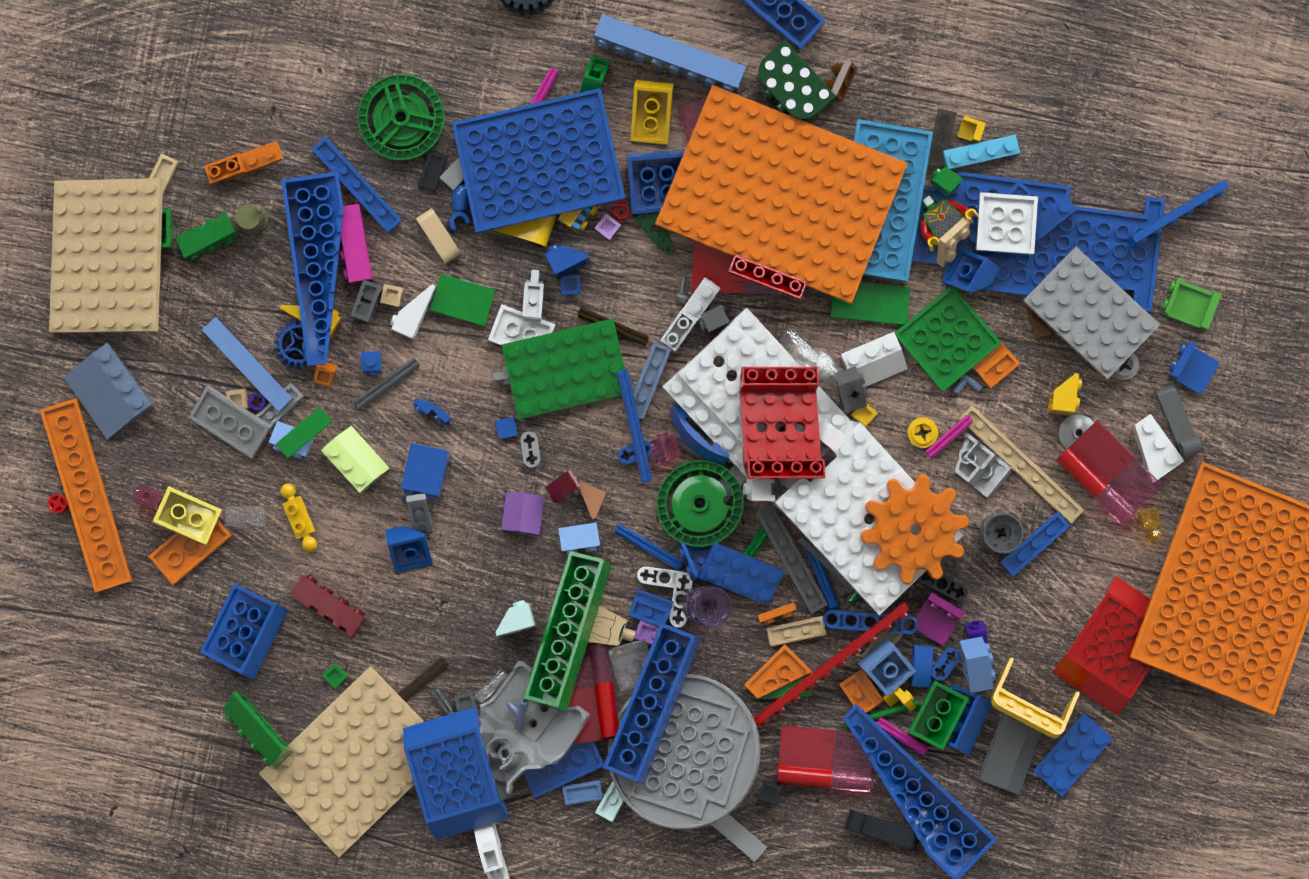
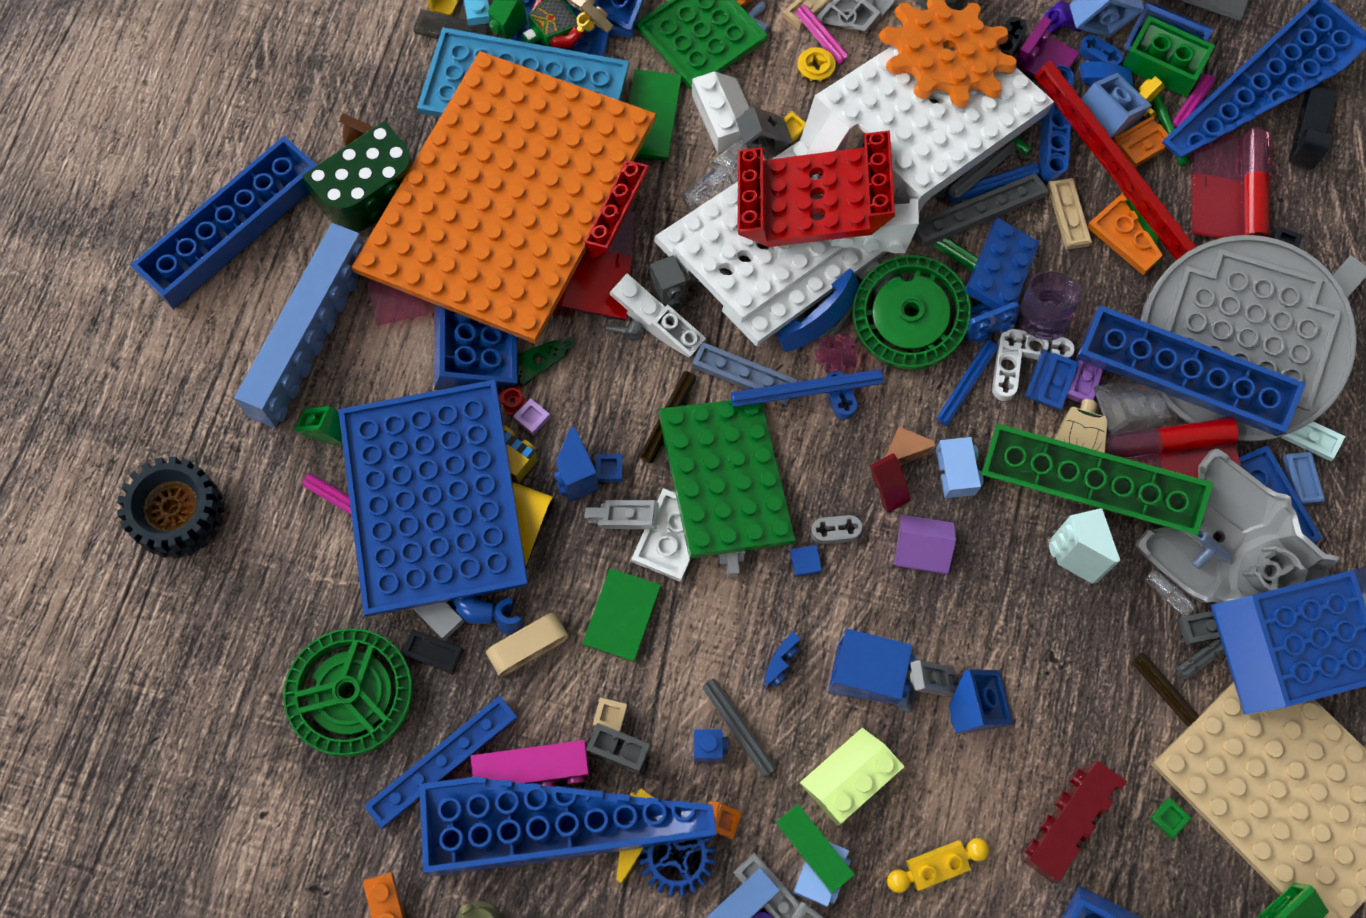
camera: 90 degrees left, 15 degrees down
(412, 315) = (643, 686): white slope -> none
(652, 112) = (379, 354): yellow slope -> none
(769, 617) = (1047, 228): orange plate -> none

